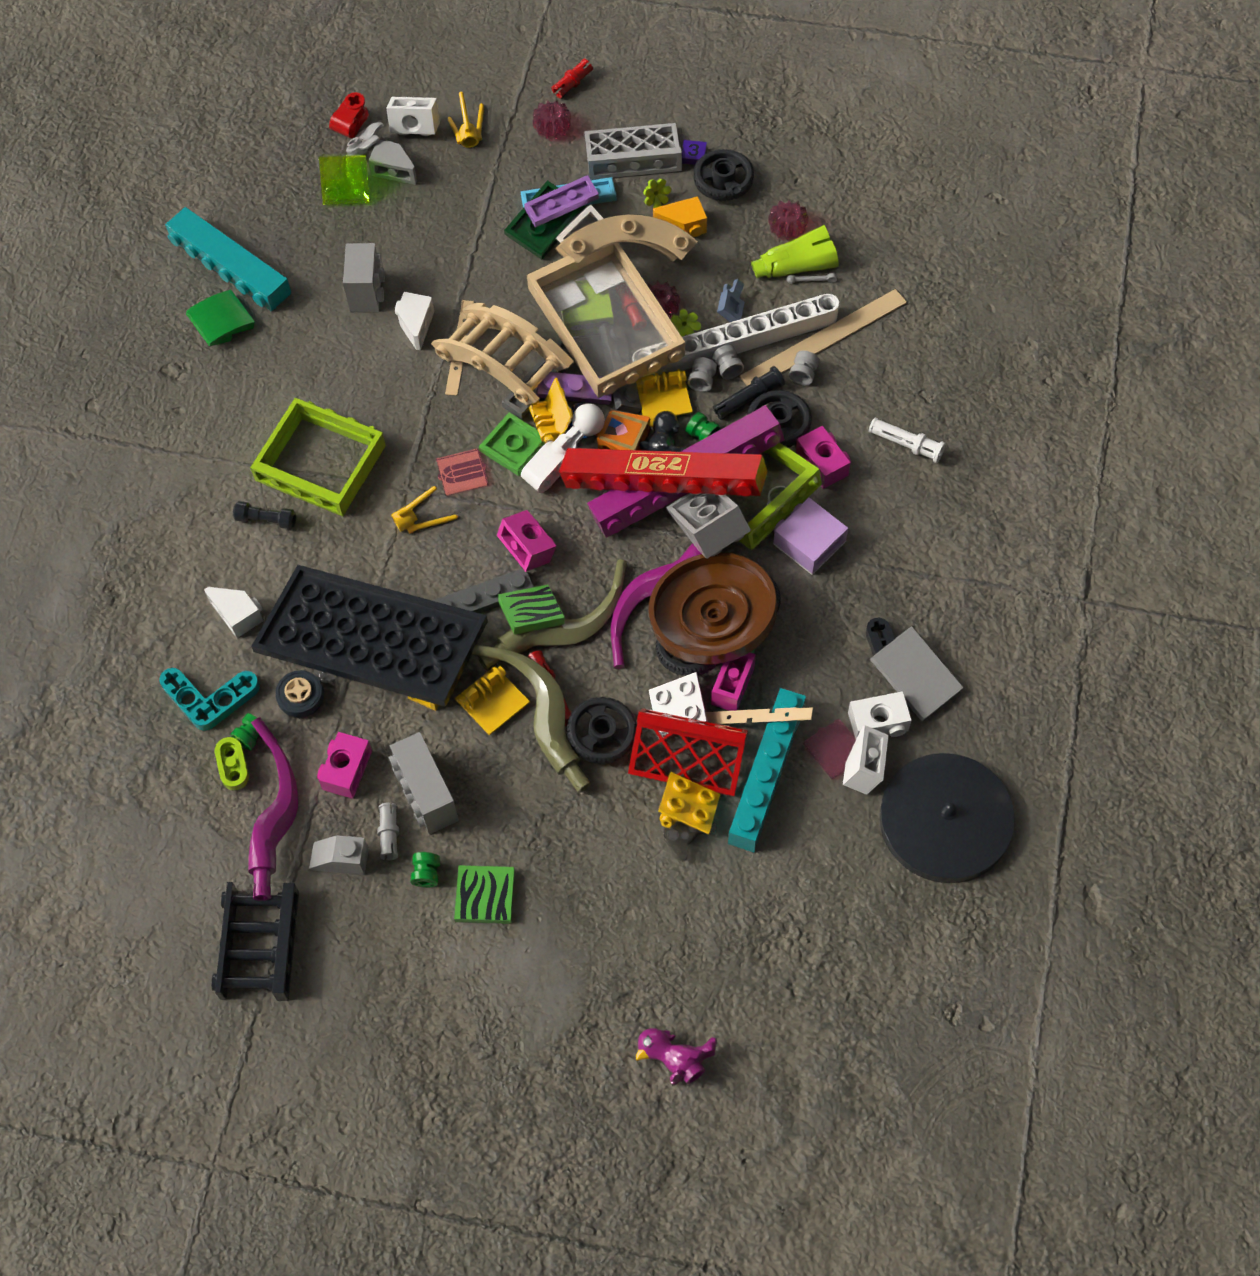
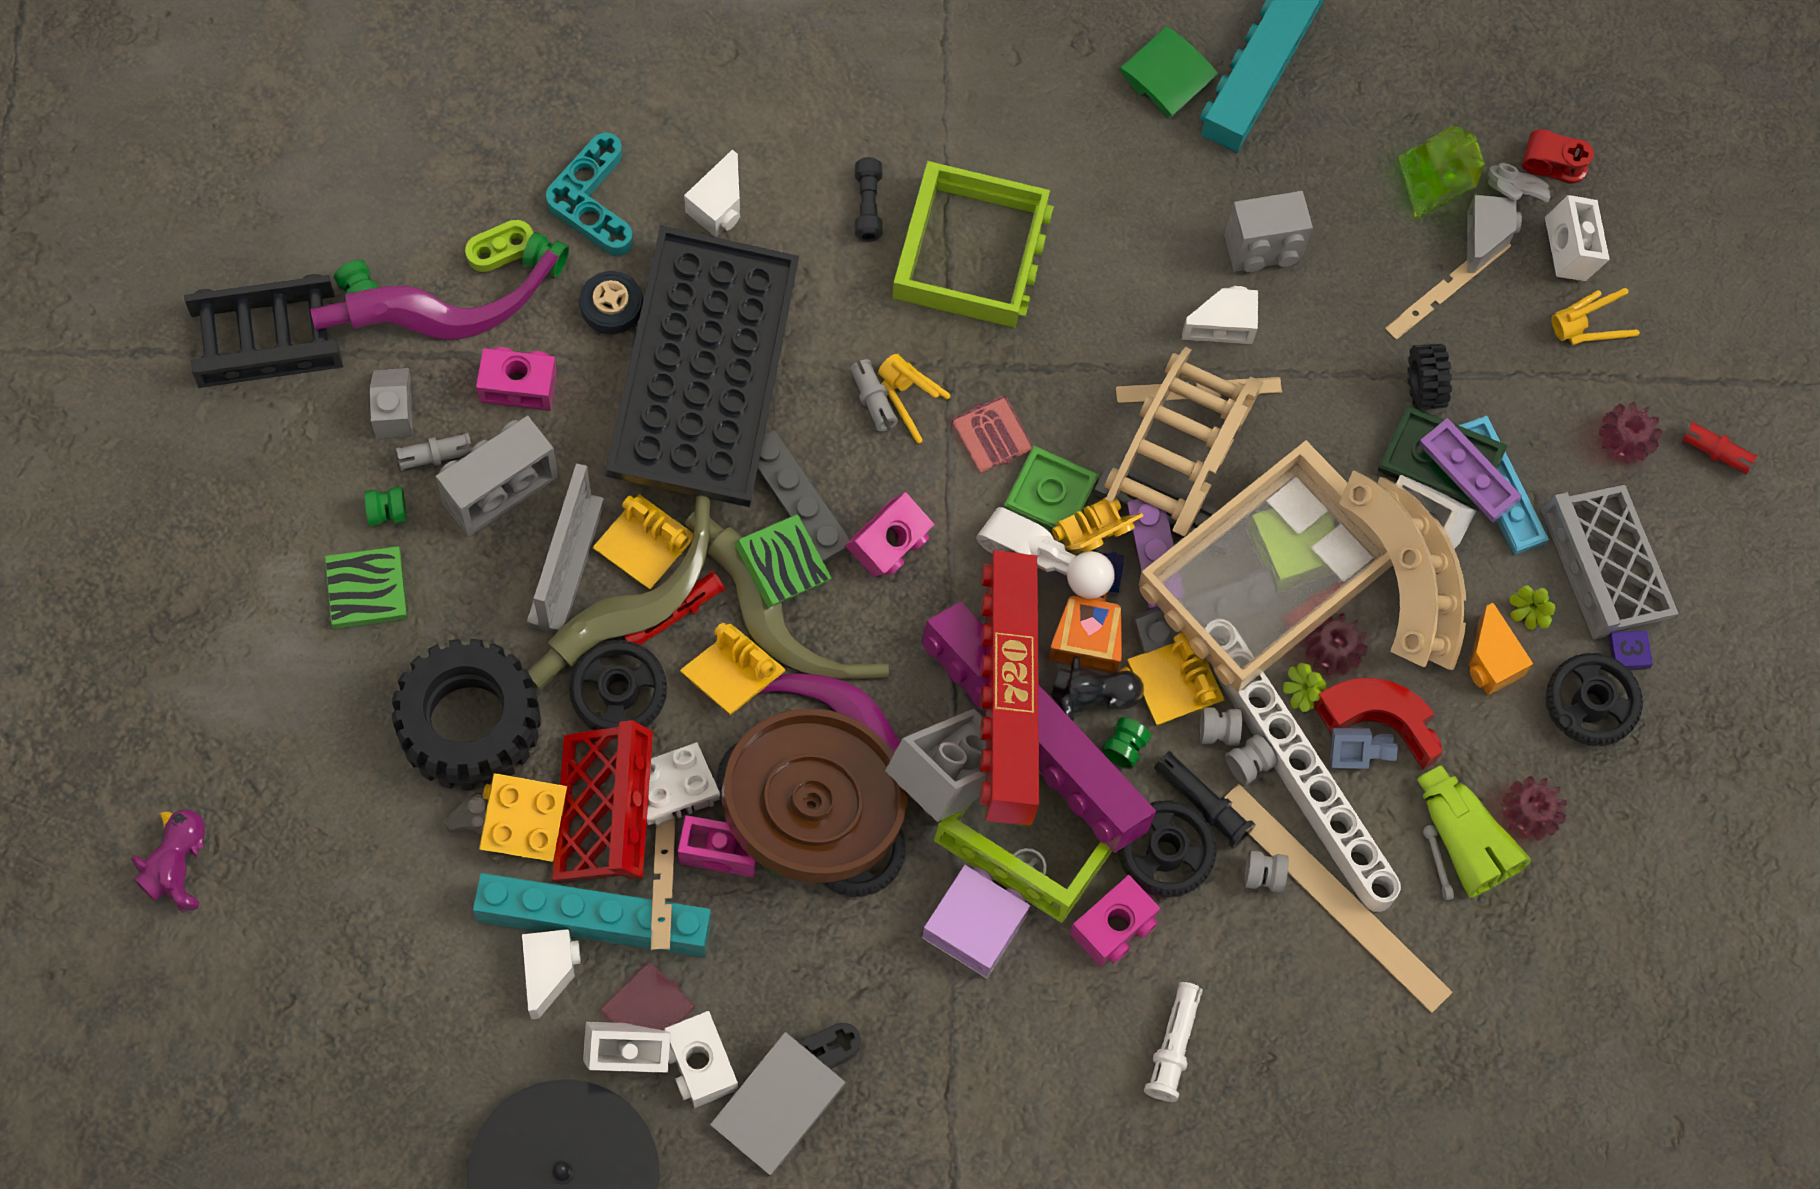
camera: 70 degrees right, 5 degrees up
(235, 867) = (354, 277): none -> green wheel
(416, 536) = (873, 395): none -> light grey pin
(426, 203) = (1439, 294): none -> tan piece
(489, 211) = (1429, 376): none -> black tyre
(493, 749) = (566, 555): none -> light grey fence
(596, 797) = (456, 669): none -> black tyre
(604, 655) = (732, 669): none -> yellow hinge
(708, 278) = (1383, 703): none -> red arch
(800, 805) = (548, 967): none -> white slope

